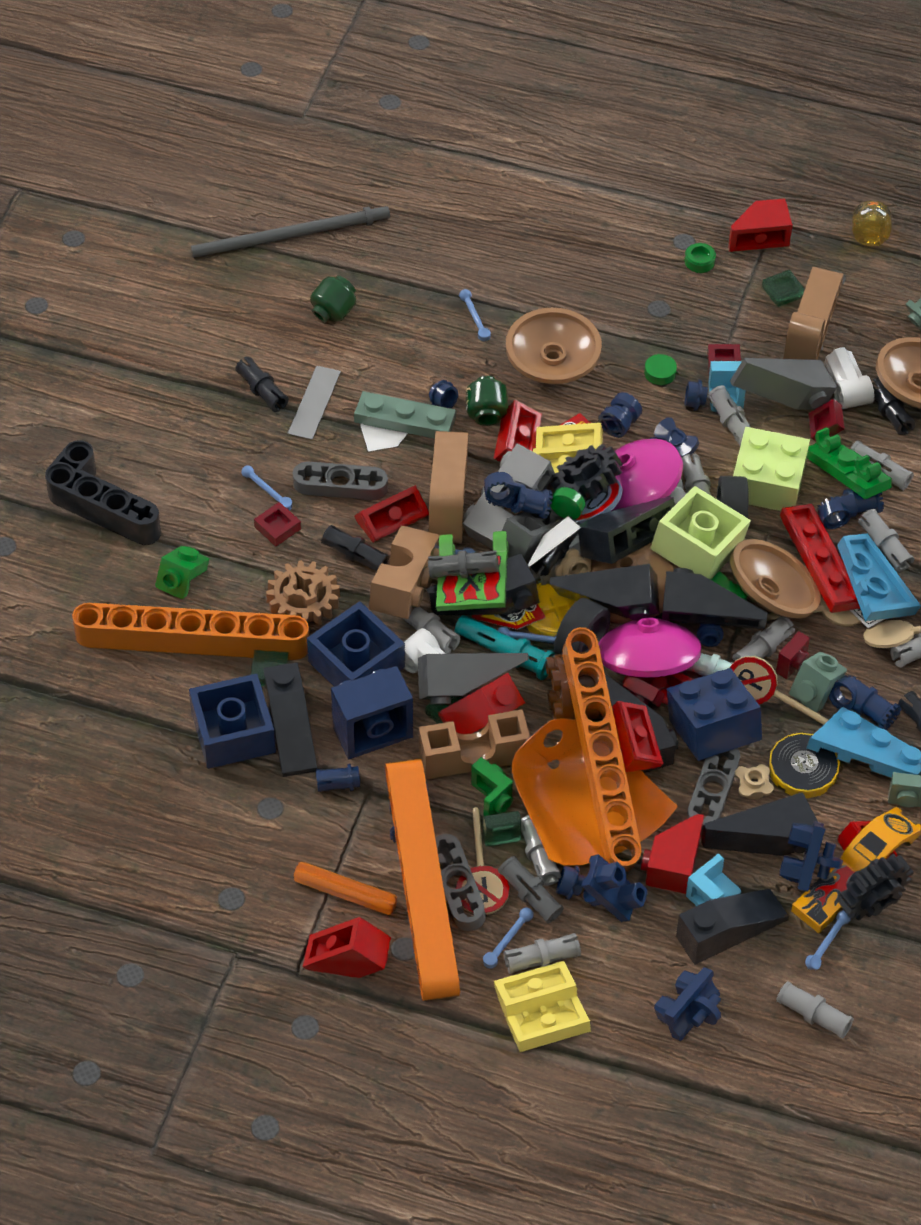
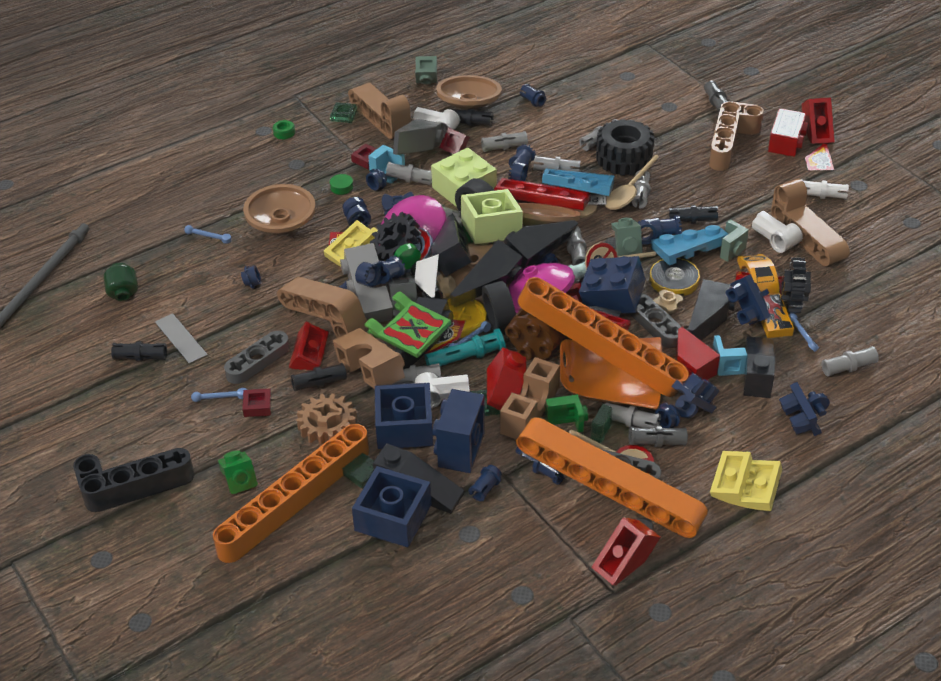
camera: 50 degrees left, 10 degrees down
(345, 888) = (572, 527): orange axle -> none
(381, 438) = (244, 318): white sticker -> none
(403, 415) = (242, 302): sand green plate -> none
(455, 674) = (480, 369): dark grey slope -> none
(463, 564) = (402, 322): dark grey pin -> none
(486, 401) = (280, 259): dark green head -> none
(490, 959) = (689, 487): medium blue hinge -> none
(517, 427) = (315, 263): red slope -> none
(542, 953) = (708, 458): light grey pin -> none
(762, 227) = (298, 93): red slope -> none
(793, 655) = (598, 234): dark red plate -> none
(847, 465) = (500, 148): green plate -> none
(871, 223) = (345, 58): clear yellow head -> none

